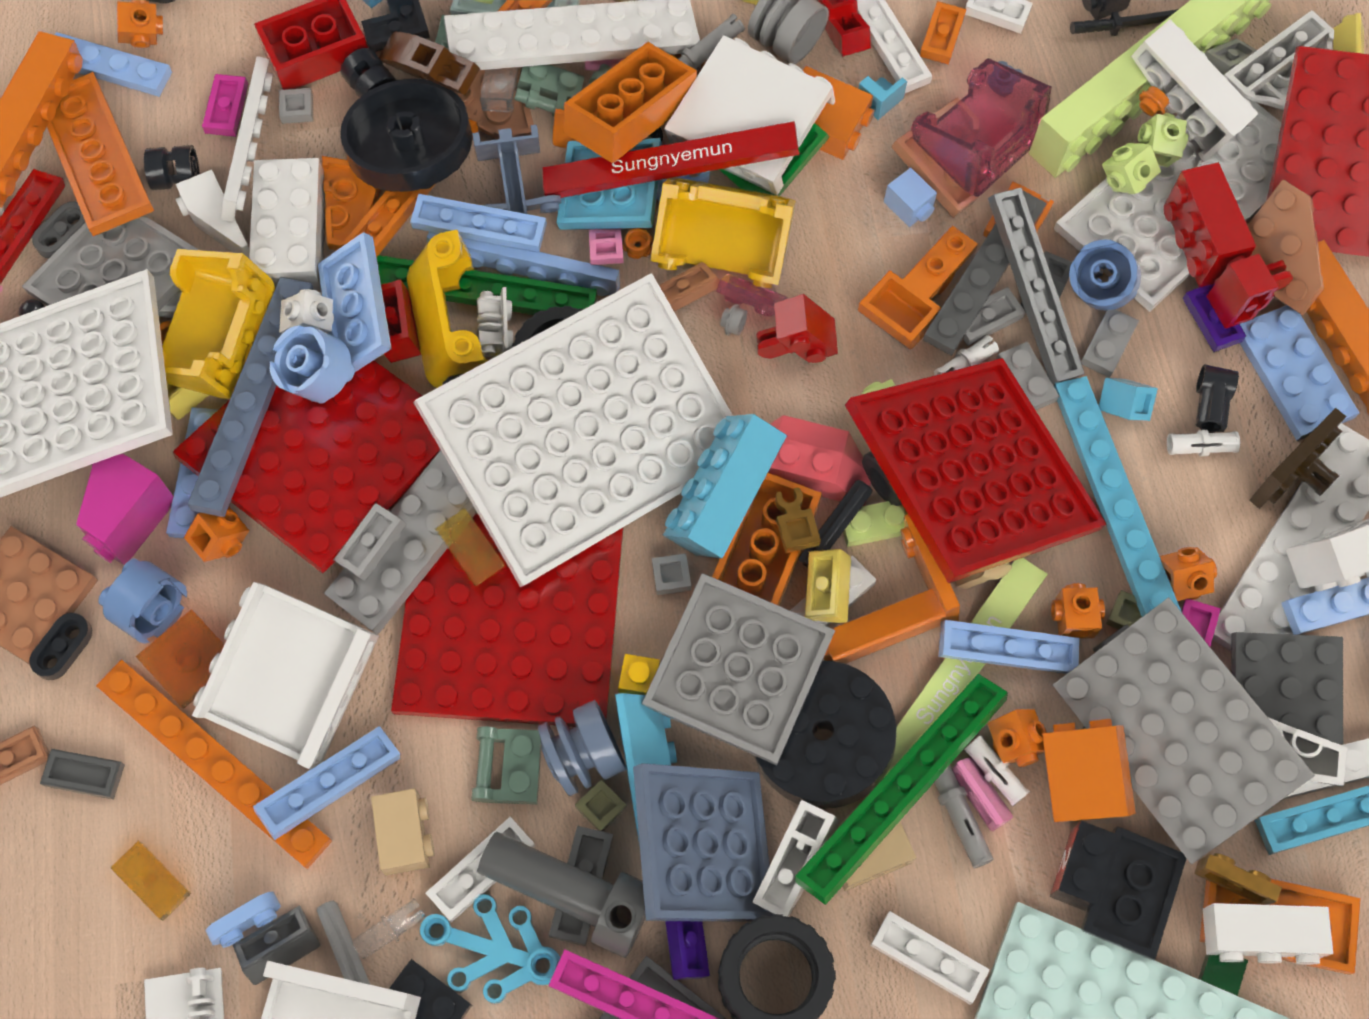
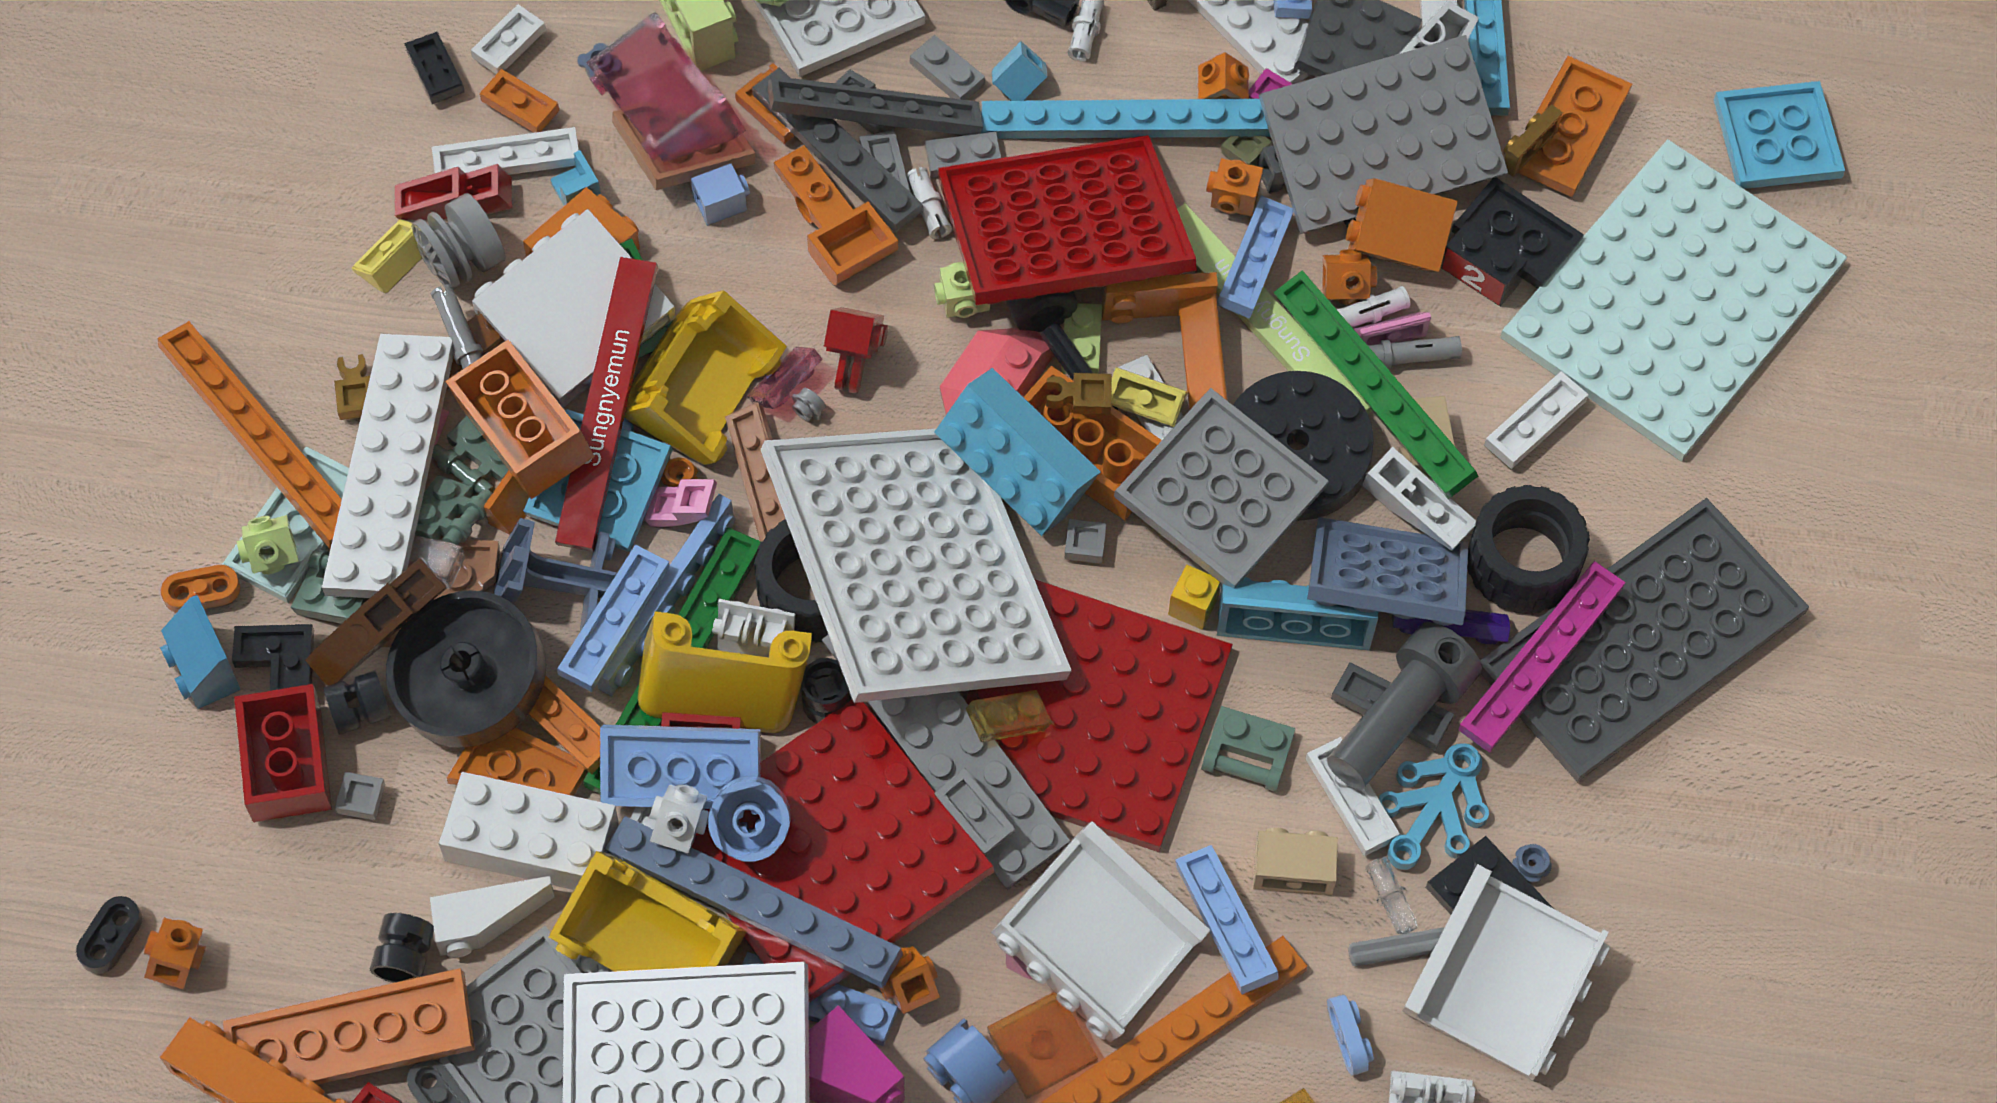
camera: 75 degrees left, 5 degrees down
(122, 67) = (214, 998): light blue plate -> none
(225, 105) = (328, 876): dark pink plate -> none
(246, 149) = (400, 850): white plate -> none
(279, 942) = (1380, 1012): dark grey slope -> none
(581, 748) = (1259, 660): sand blue wheel -> none
(600, 806) = (1315, 668): olive plate -> none
(1090, 265) = (901, 30): medium blue brick -> none
(1223, 975) = (1602, 187): dark green tile -> none
(1267, 932) = (1585, 134): white brick -> none

